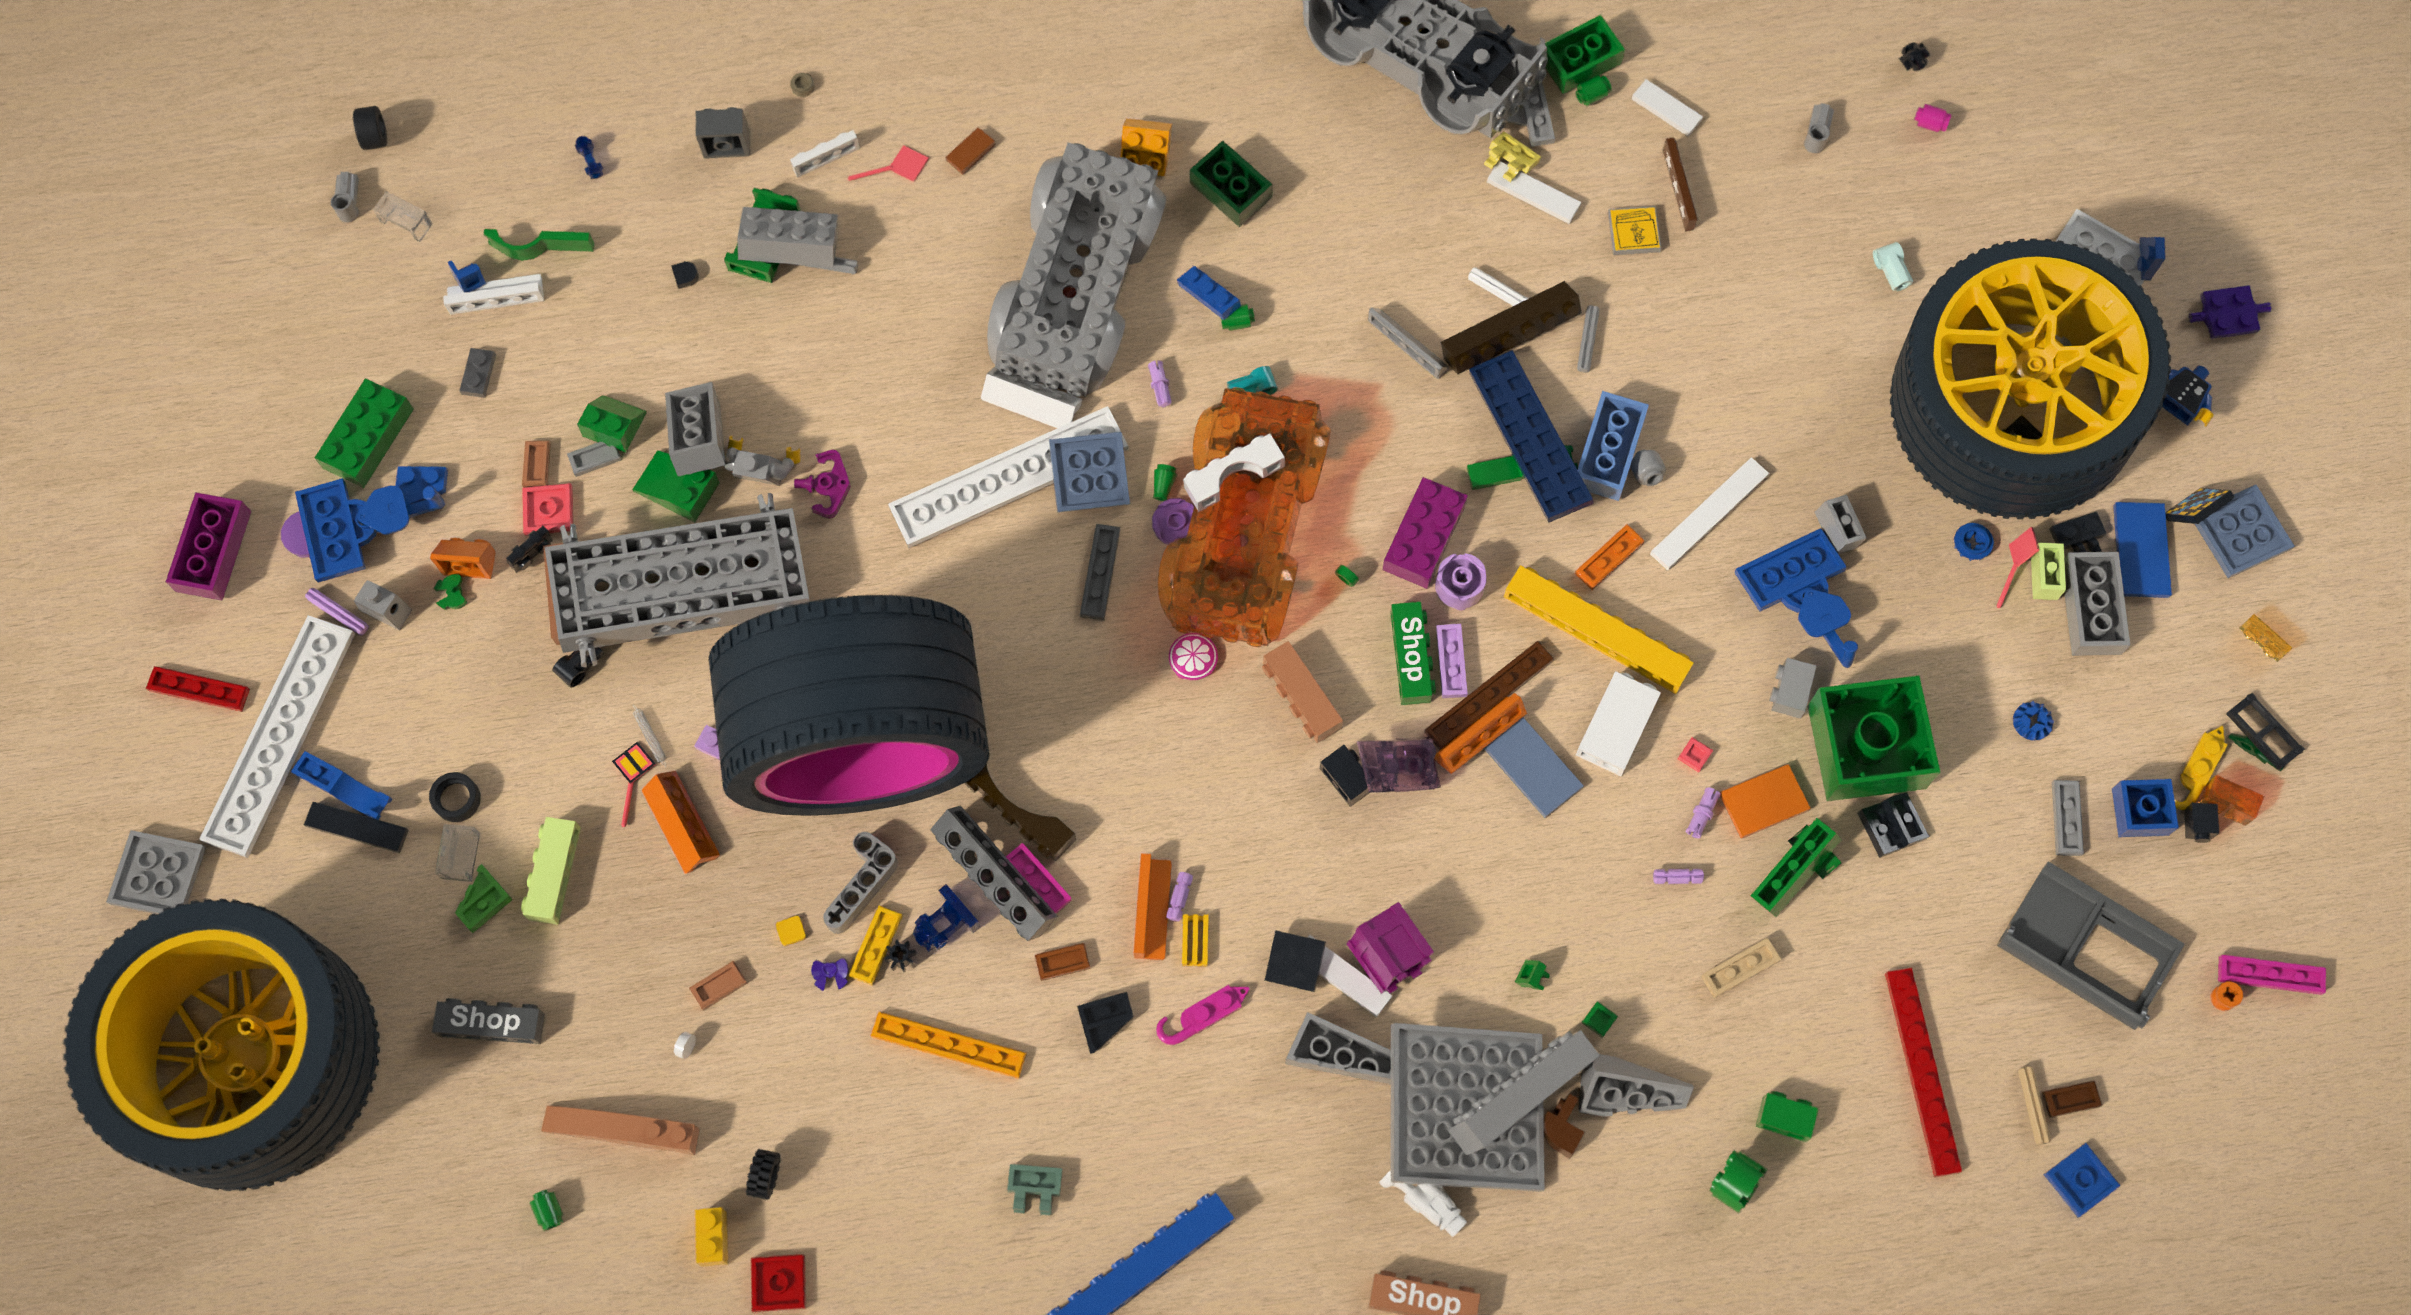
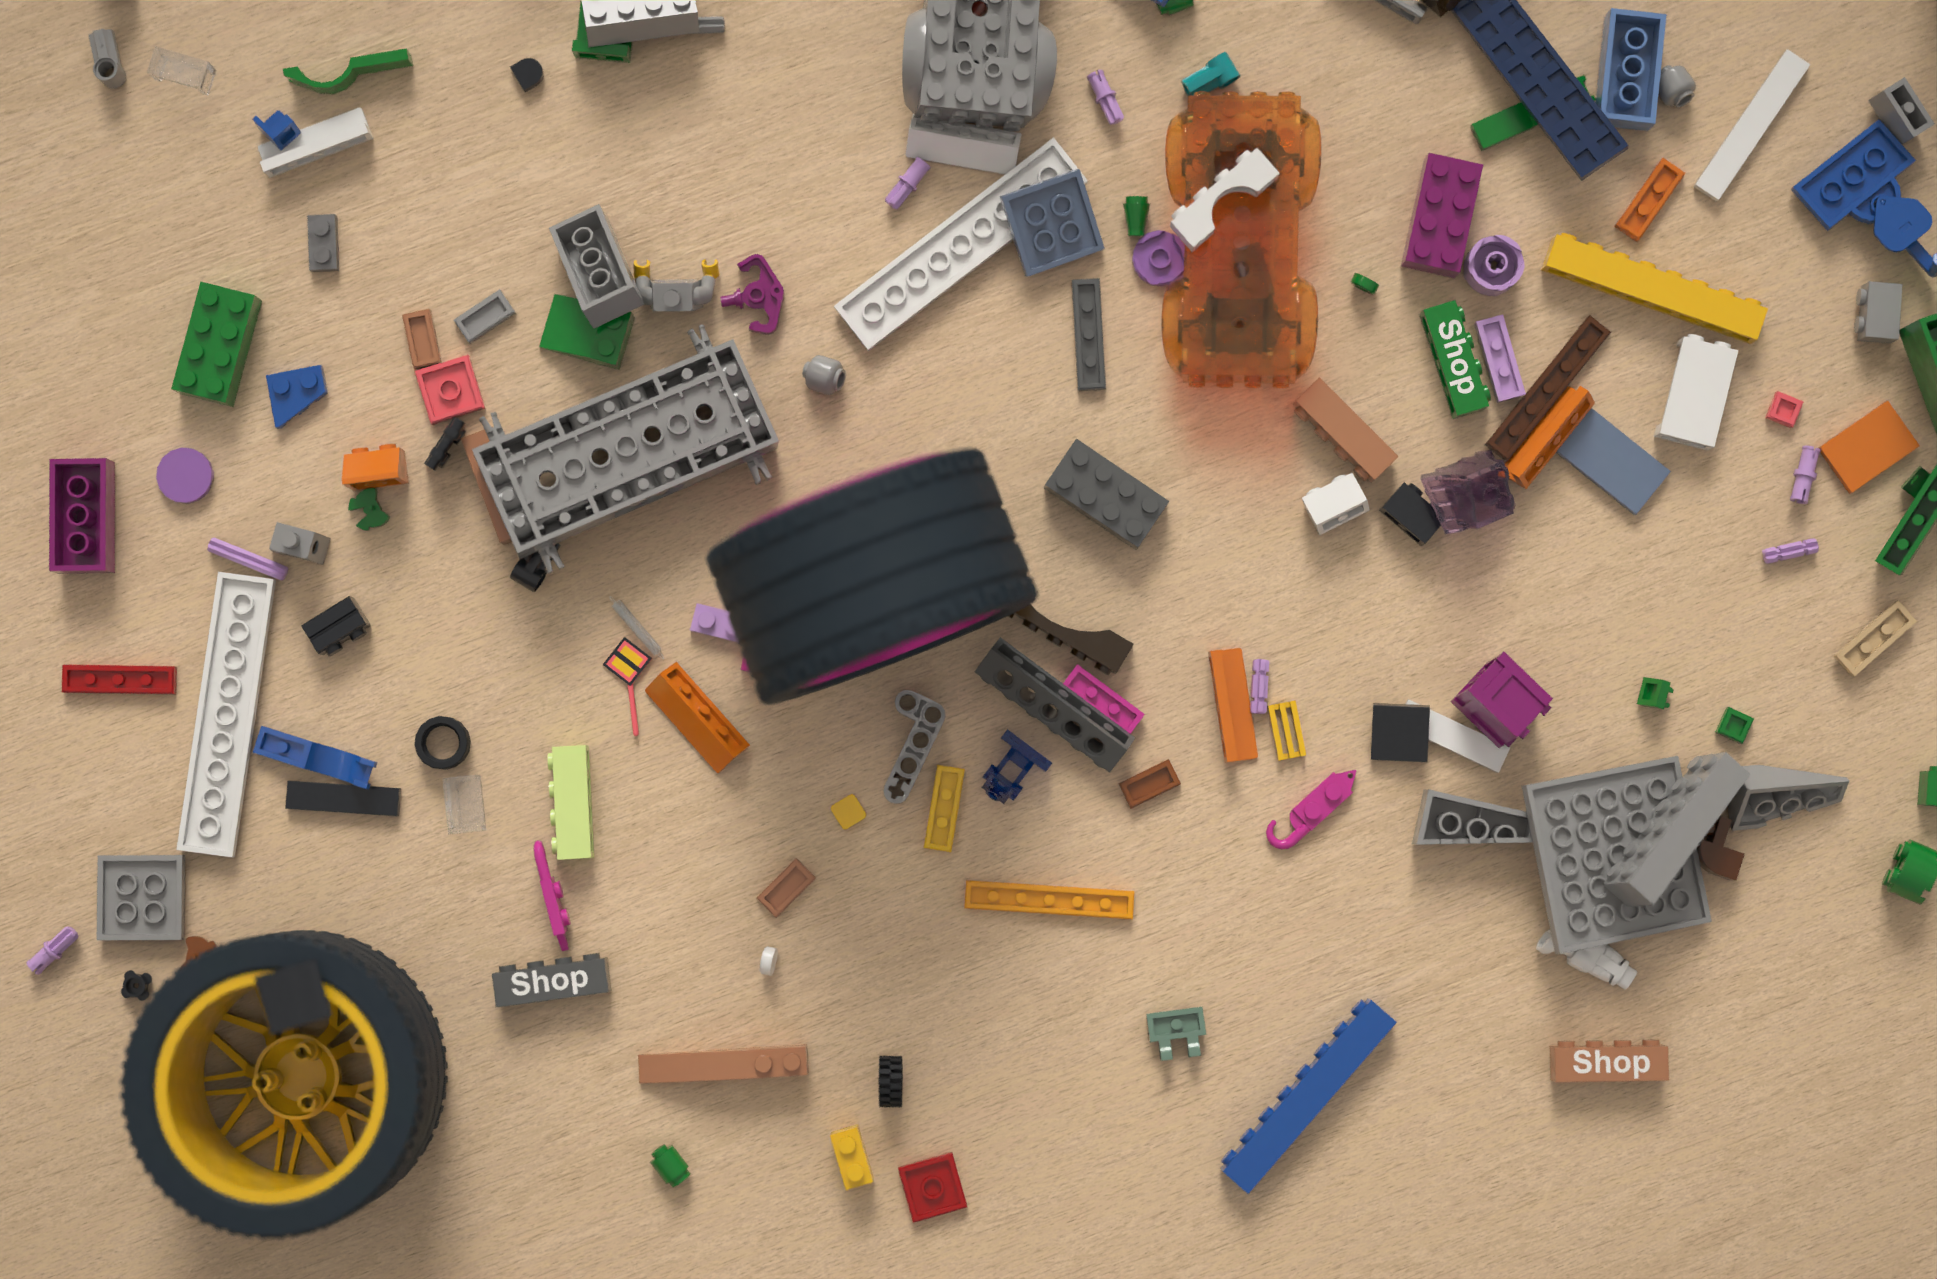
camera: 15 degrees left, 15 degrees up
(66, 903) = (52, 950): none -> lavender axle
(243, 955) = (292, 996): none -> black slope
(334, 521) = (217, 461): blue plate -> none
(393, 681) = (336, 626): none -> black brick
(482, 900) = (505, 850): bright green wing -> none
(510, 946) = (552, 893): none -> dark pink plate
(611, 422) = (494, 271): green slope -> none
(822, 970) = (895, 848): dark purple piece -> none
(865, 558) = (824, 375): none -> light grey head
(907, 959) = (967, 813): black gear -> none
(976, 419) = (907, 183): none -> lavender axle
(1082, 704) = (1106, 494): none -> dark grey brick
(1104, 1018) = (1209, 836): black wing -> none
(1193, 656) = (1214, 412): dish -> none
(1280, 751) = (1335, 503): none -> white brick

